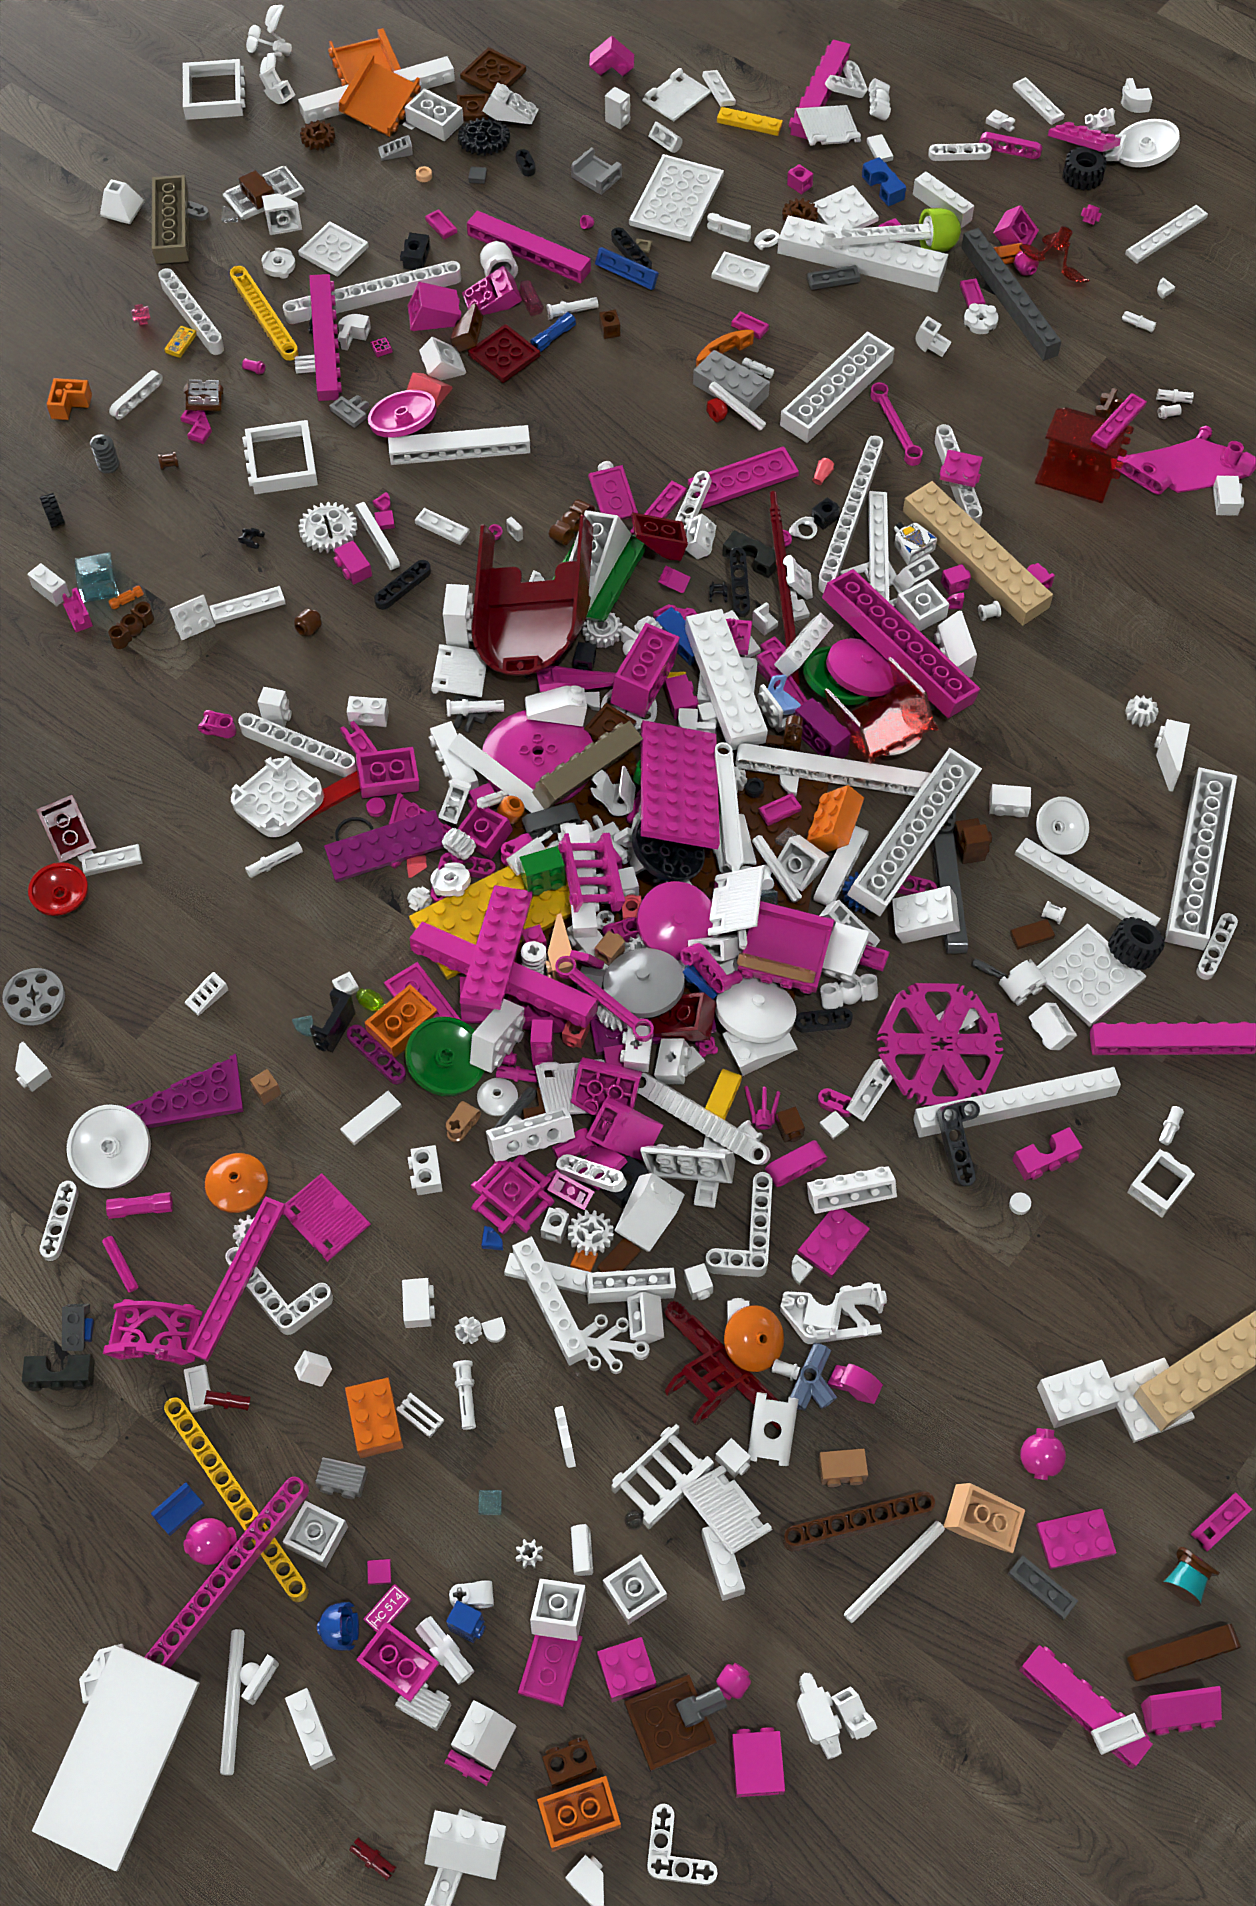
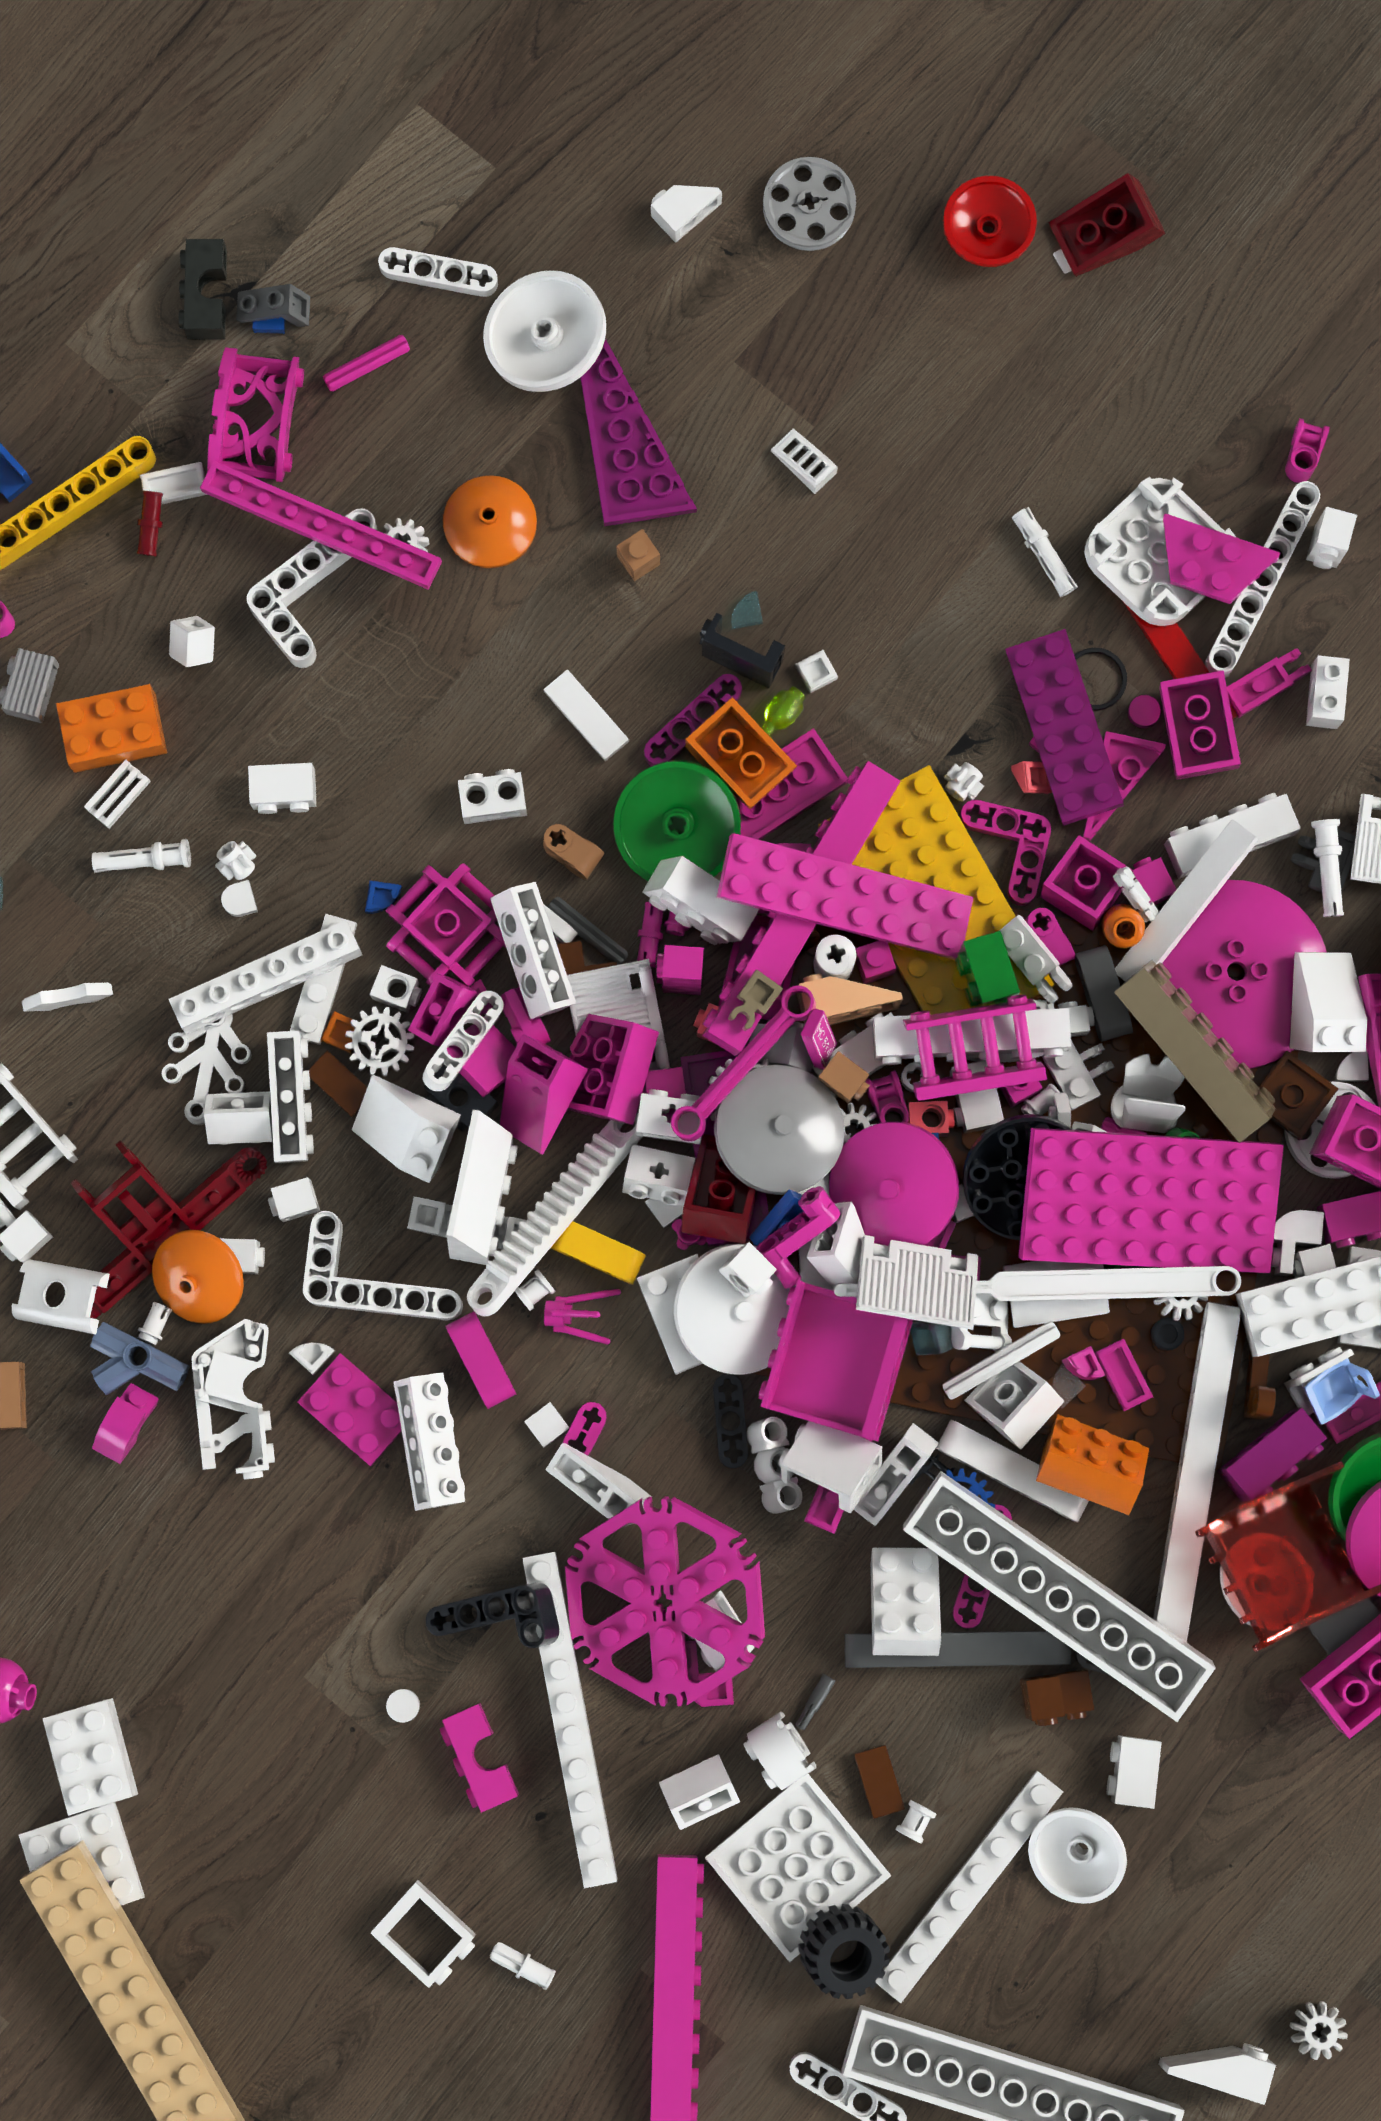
camera: 90 degrees right, 20 degrees up
(111, 860) = (1052, 301): white tile -> none
(156, 1203) = (456, 404): dark pink axle -> none
(286, 766) = (1212, 560): none -> dark pink wing
(325, 1217) = (429, 651): dark pink window -> none
(454, 800) = (1139, 834): white brick -> none
(455, 887) = (974, 837): white plate -> none
(459, 844) = (1053, 840): white gear -> none
(494, 1104) = (615, 922): white dish -> none
(564, 987) = (757, 997): none -> dark tan plate
(733, 994) = (748, 1271): none -> white brick
(775, 828) = (1084, 1365): none -> dark pink tile
(776, 967) = (786, 1377): medium nougat beam -> none
(789, 783) = (1172, 1394): white tile -> none
(790, 1124) = (544, 1355): reddish brown brick -> none

